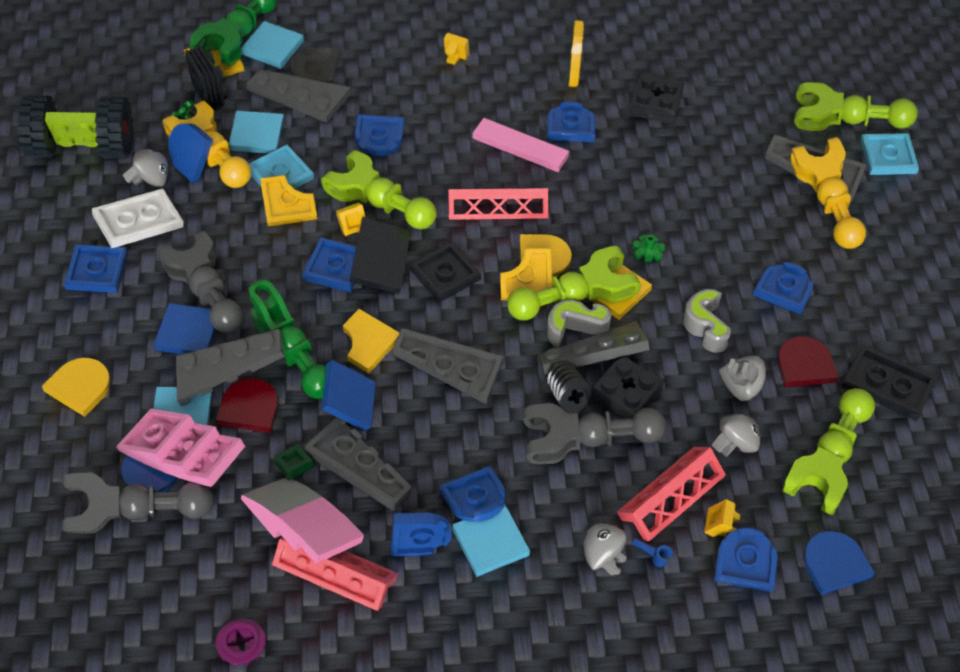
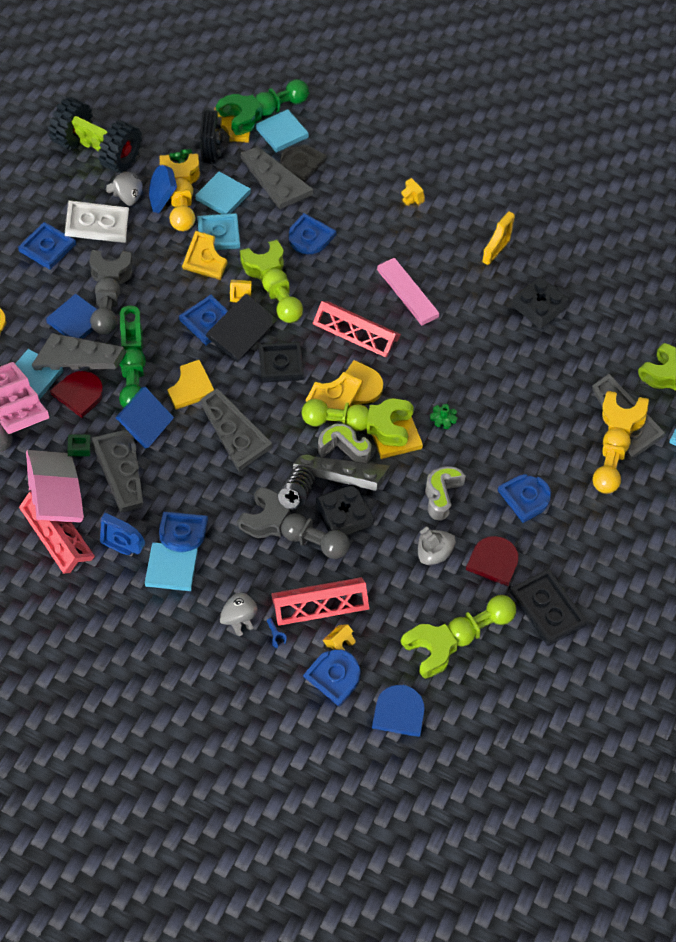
camera: 30 degrees right, 5 degrees up
(571, 123) = (459, 291): blue tile -> none
(737, 431) = (396, 583): light grey piece -> none

